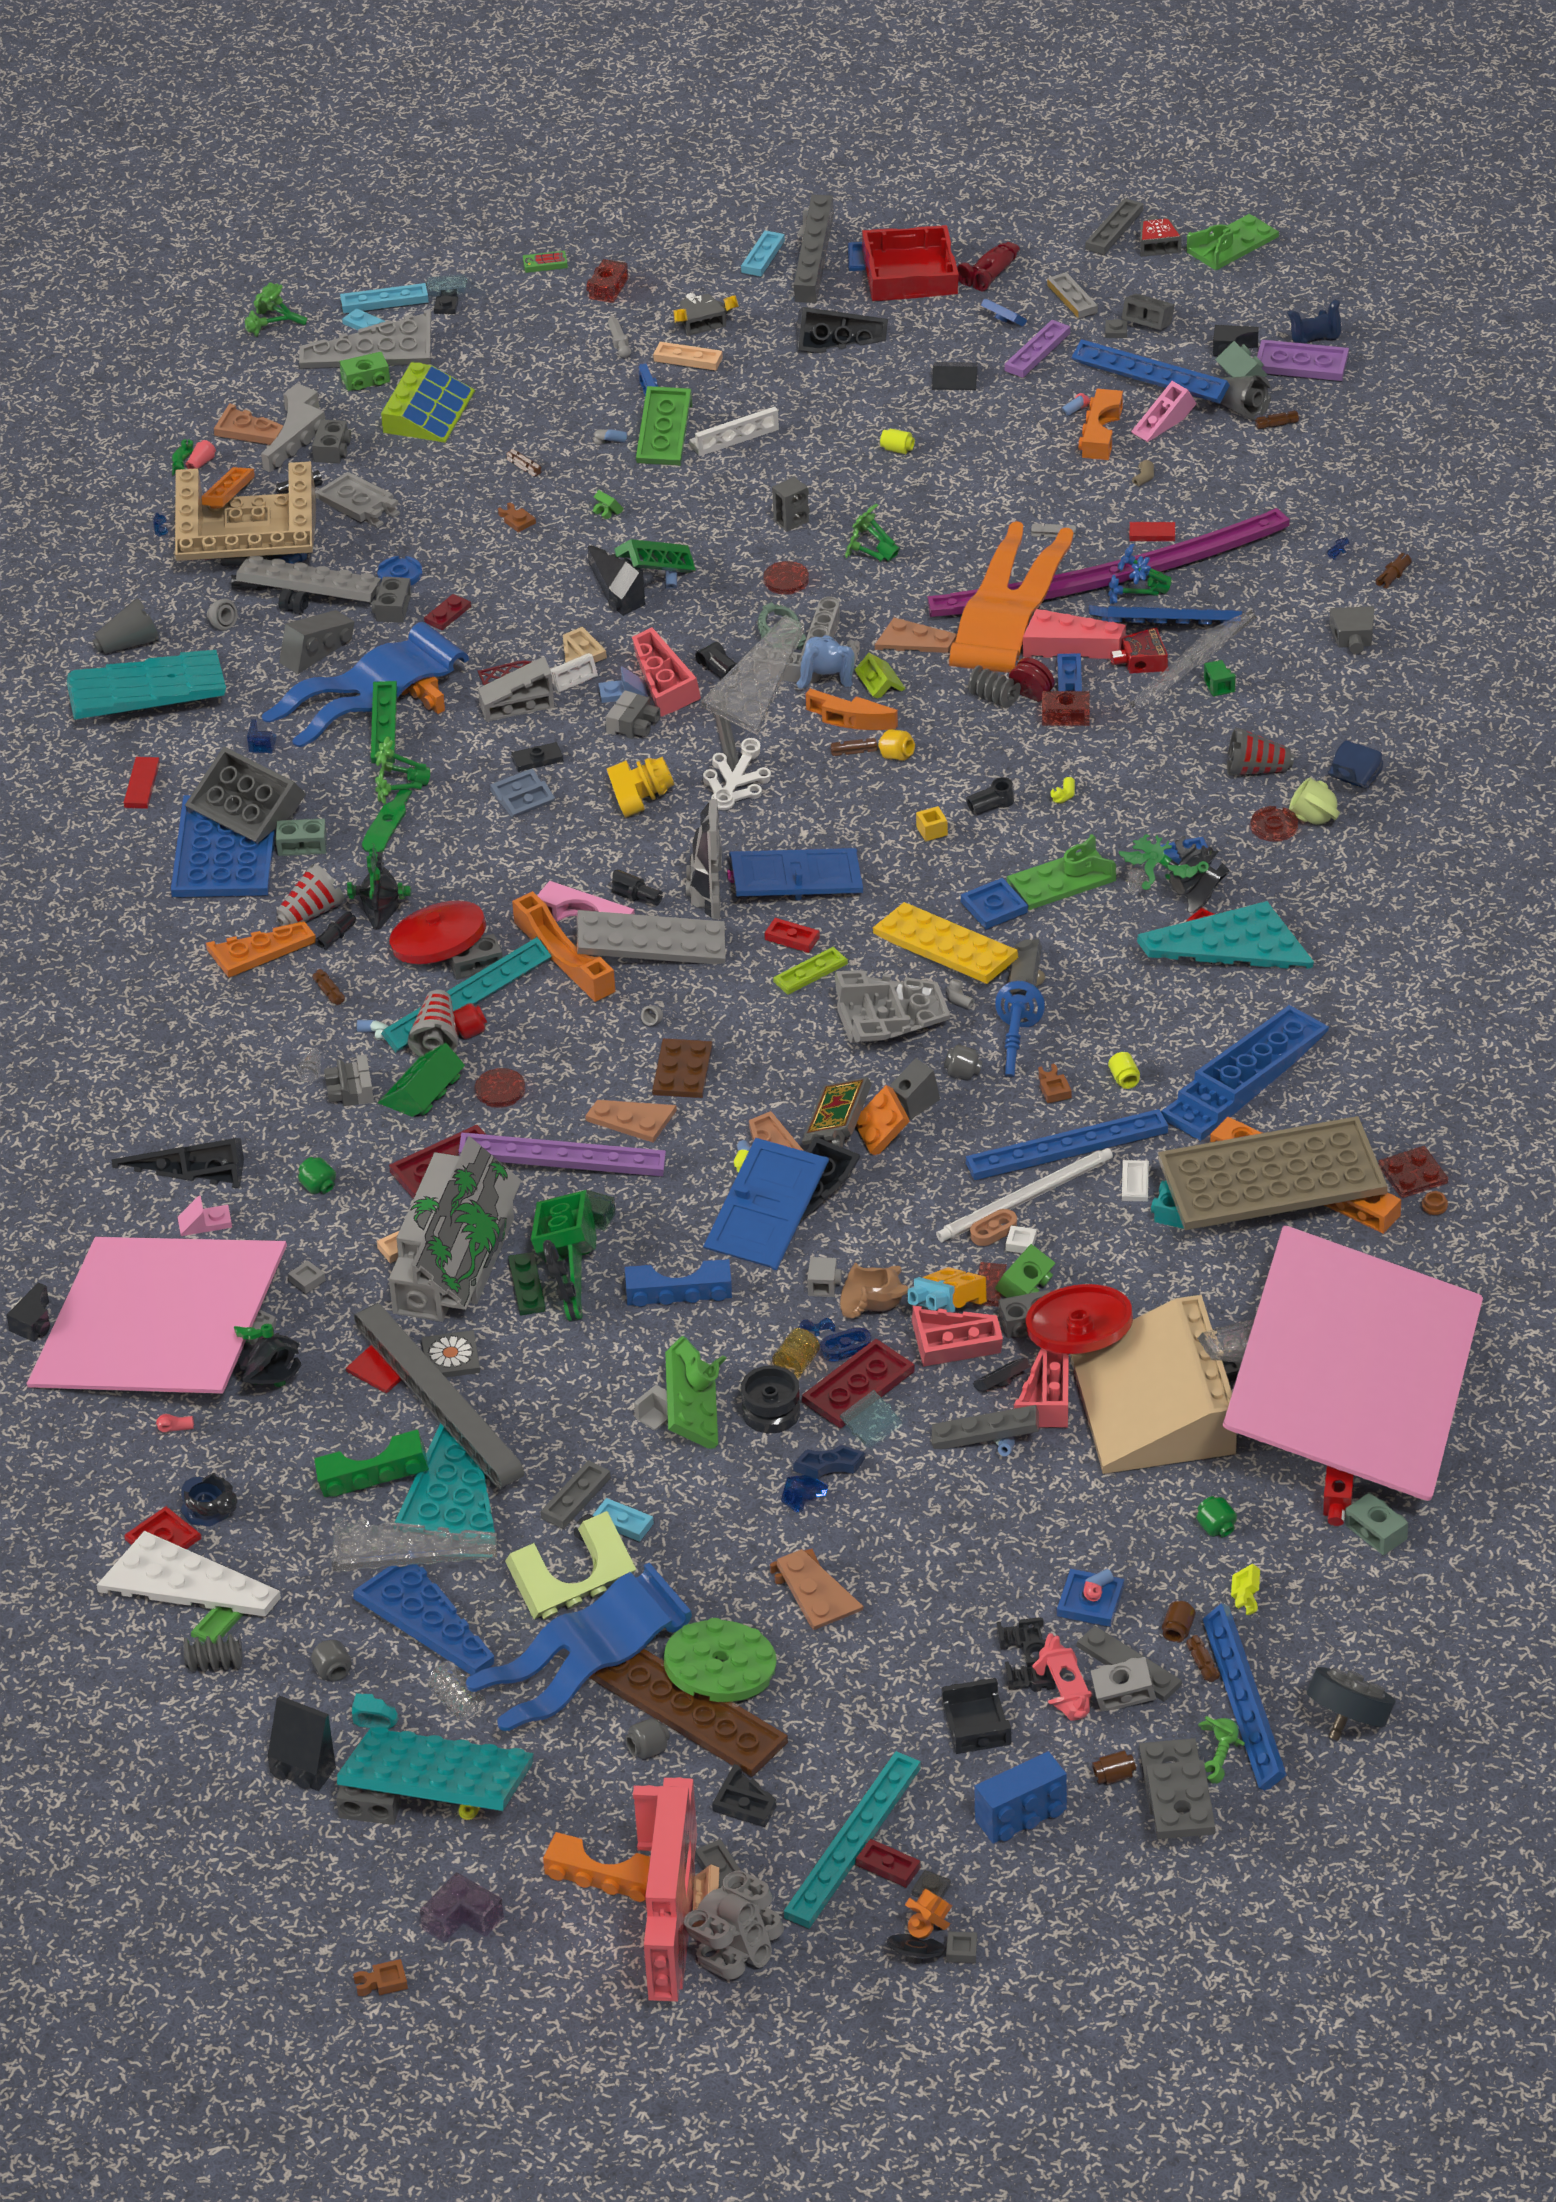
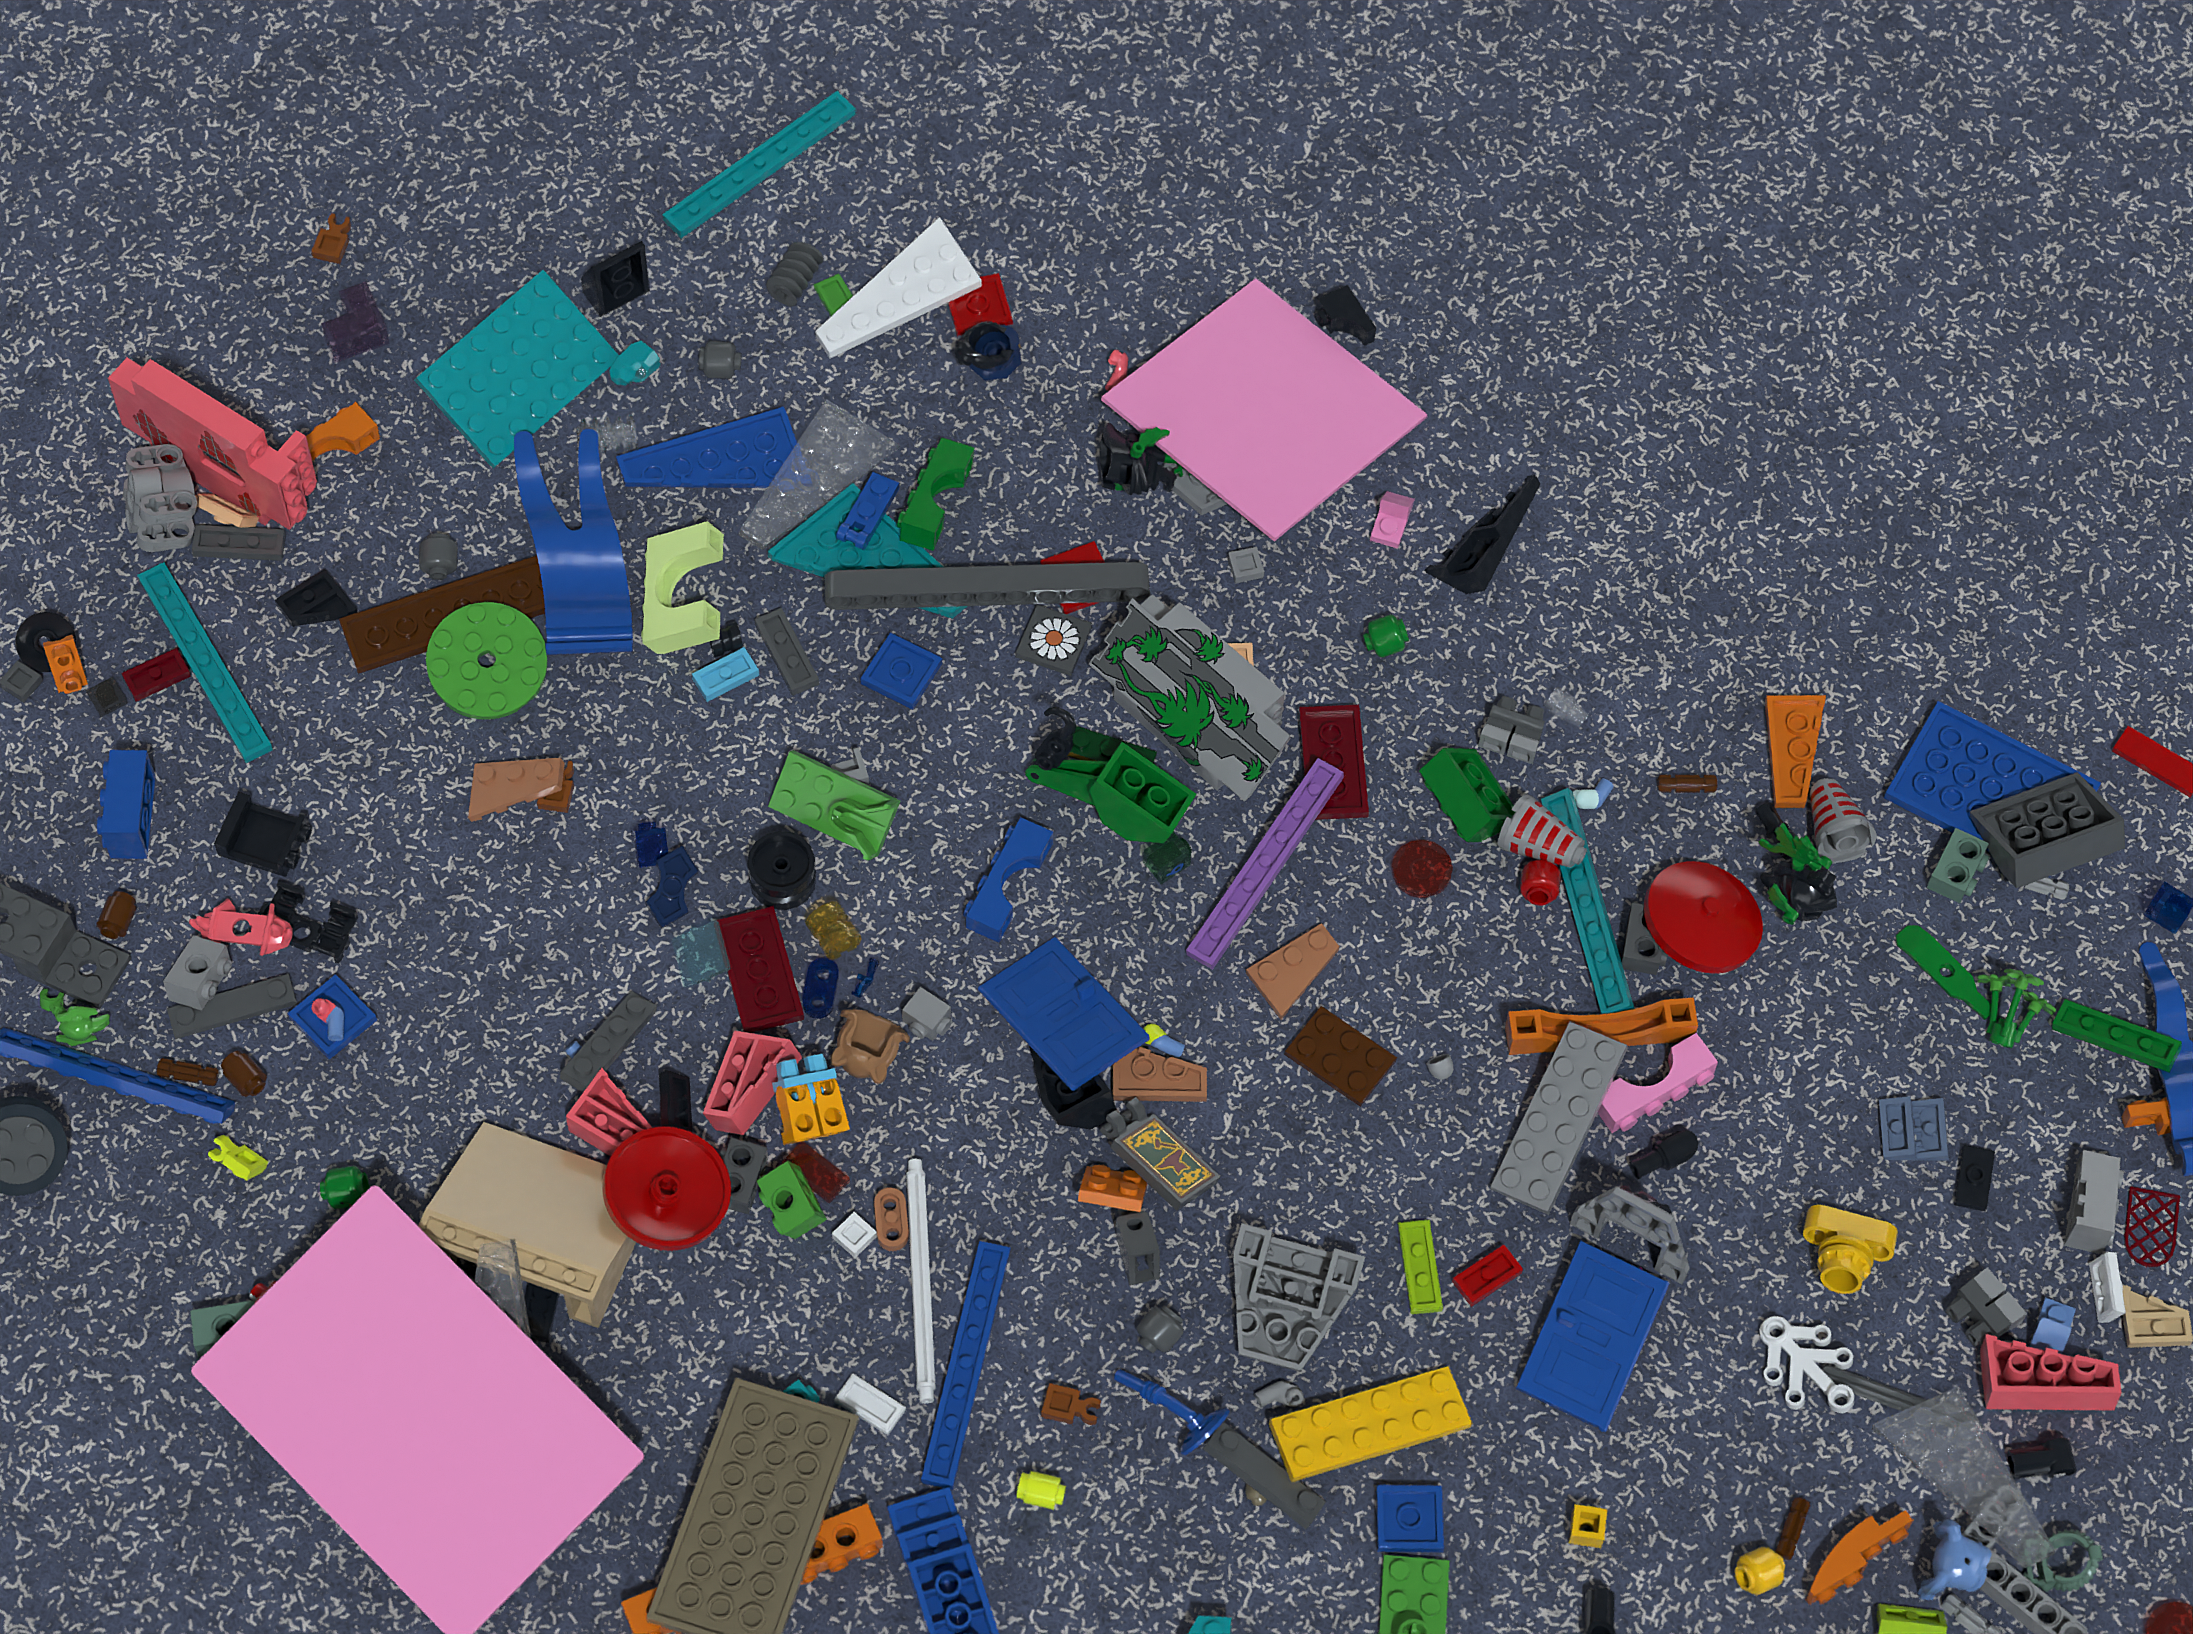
camera: 115 degrees right, 20 degrees up
(111, 1733) = (759, 164): none -> teal plate
(417, 1496) = (868, 510): none -> blue plate
(543, 1422) = (901, 671): none -> blue plate

